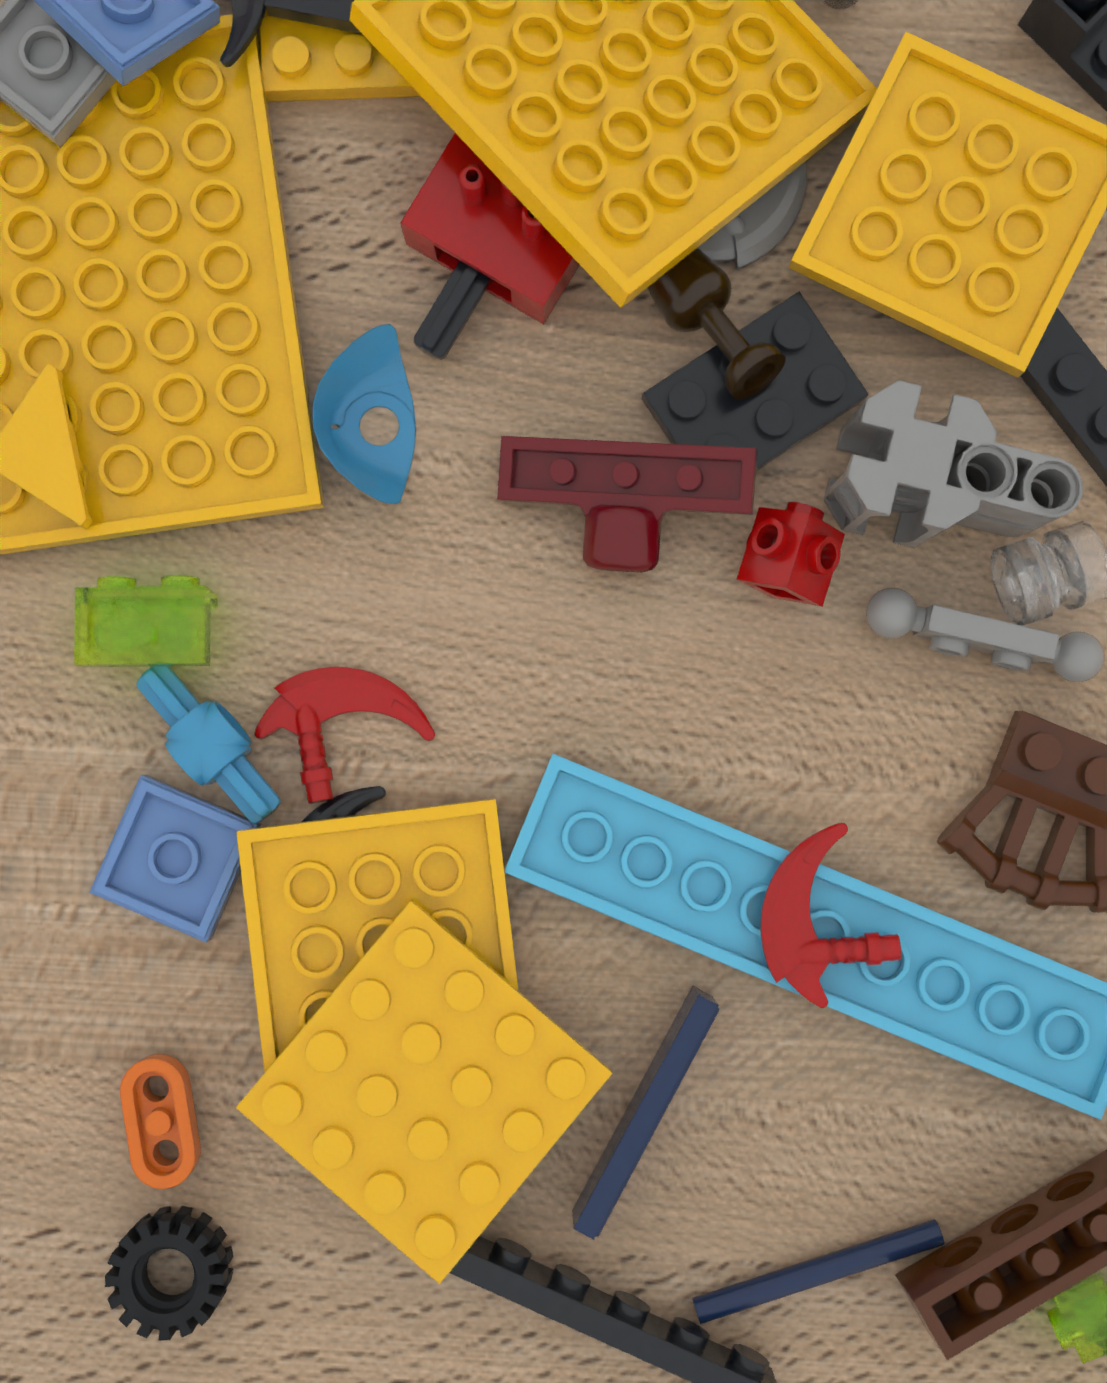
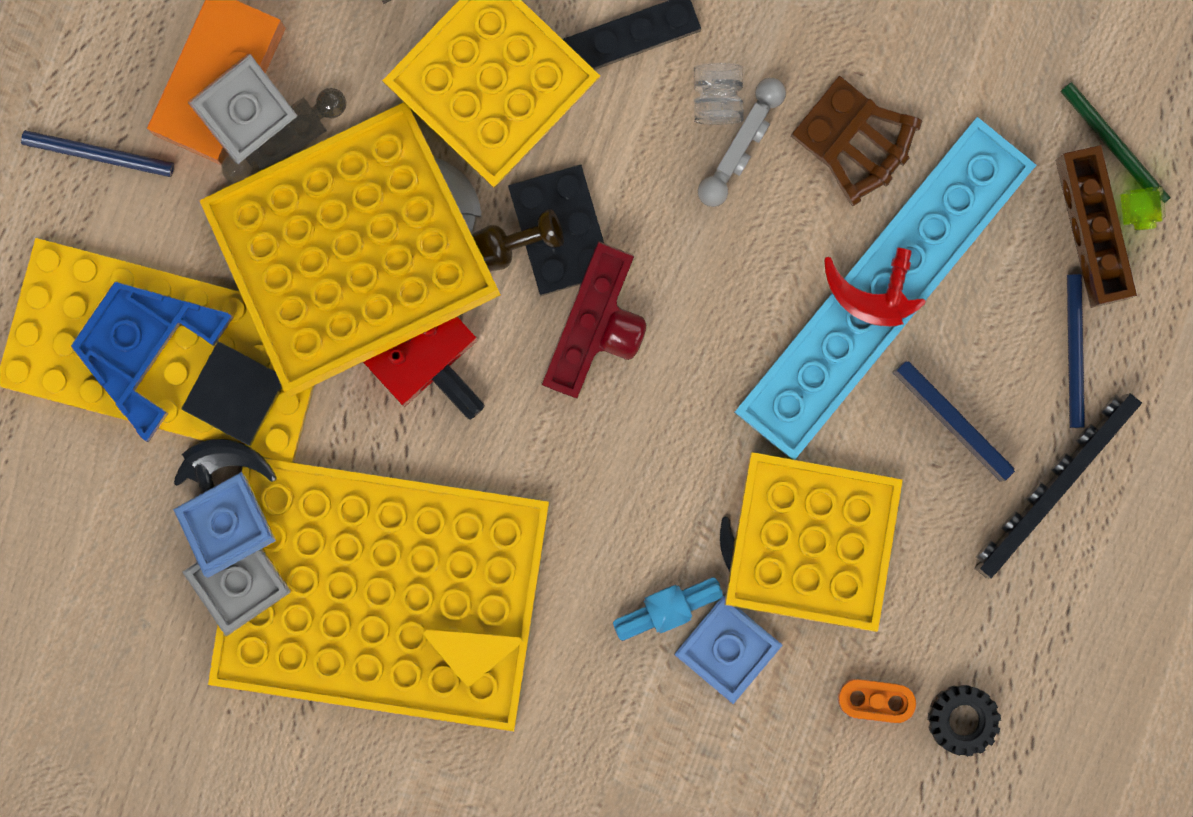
camera: 70 degrees left, 0 degrees up
(143, 623) = (589, 623): clear neon green bracket -> none
(323, 694) = (658, 533): red piece -> none
(360, 379) = (481, 451): dark azure piece -> none
(424, 1091) = (902, 539): yellow plate -> none
(791, 554) = (661, 239): red brick -> none
(943, 472) = (641, 149): light grey connector -> none

